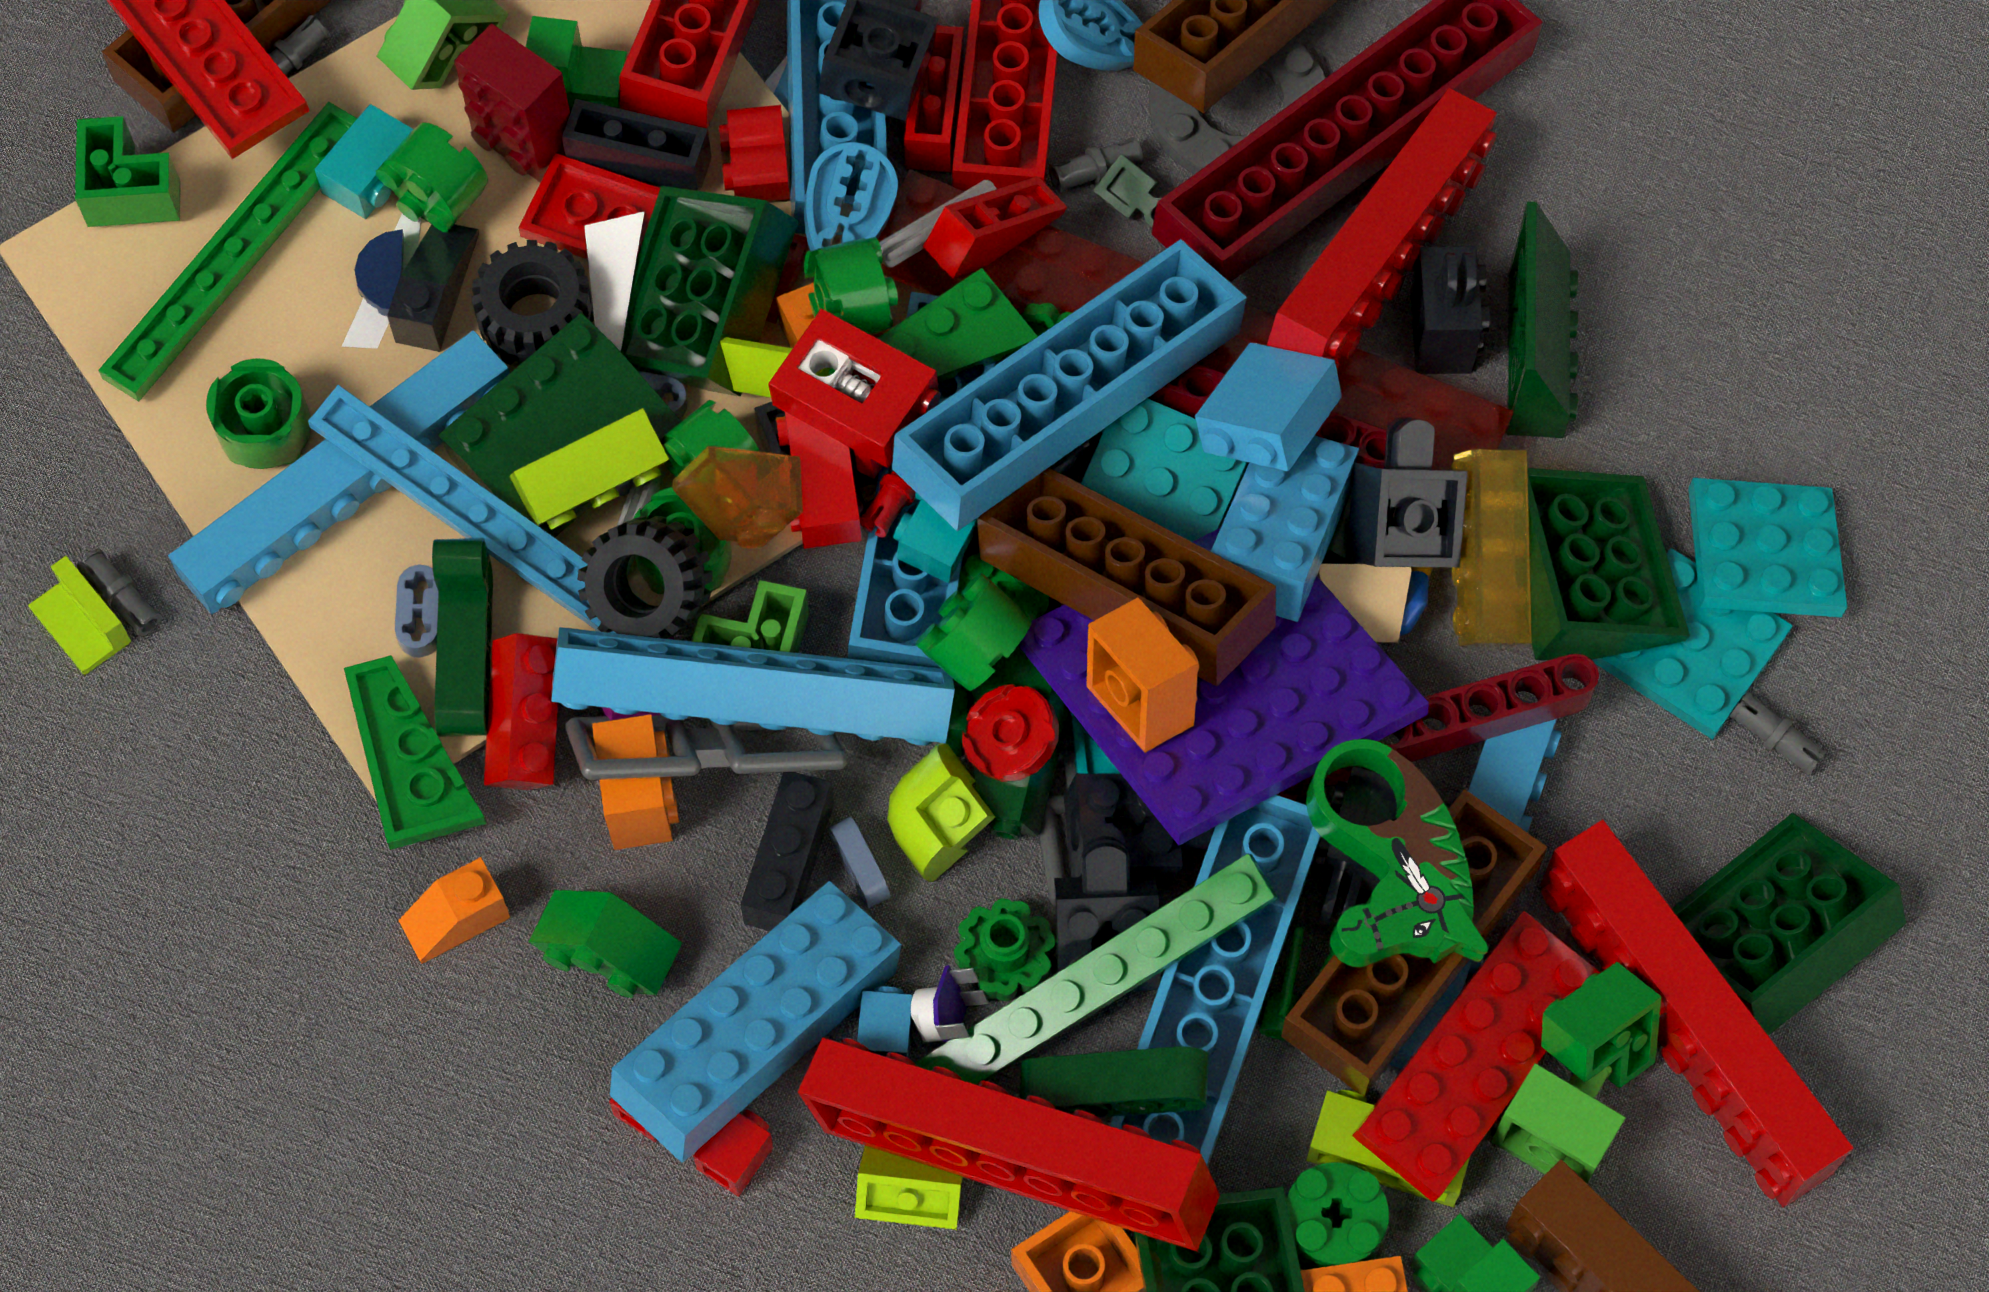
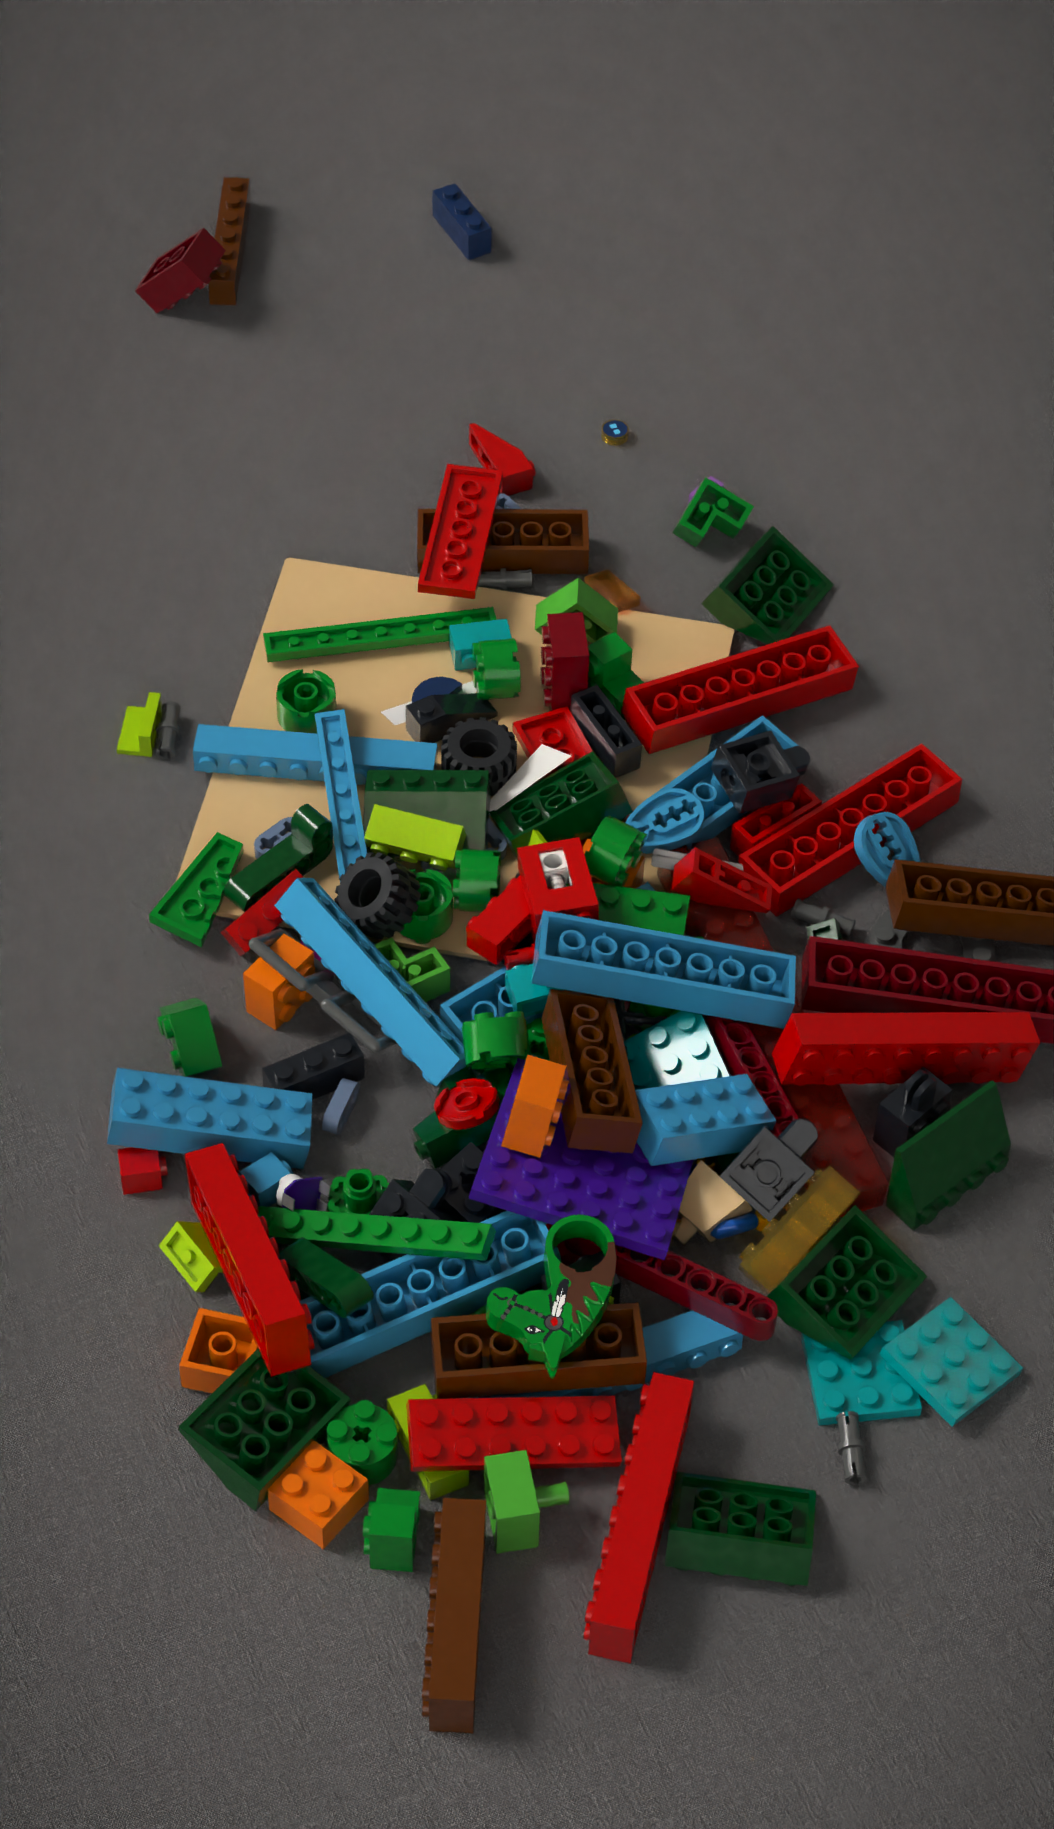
camera: 45 degrees right, 15 degrees down
(118, 185) = (365, 565): green brick -> none
(454, 911) = (148, 971): orange slope -> none
(742, 493) = (459, 891): clear orange slope -> none
(756, 152) = (657, 773): red brick -> none
(936, 812) = (397, 1111): lime brick -> none
(1268, 406) = (747, 1059): dark azure brick -> none
(1604, 1025) = (588, 1471): green brick -> none

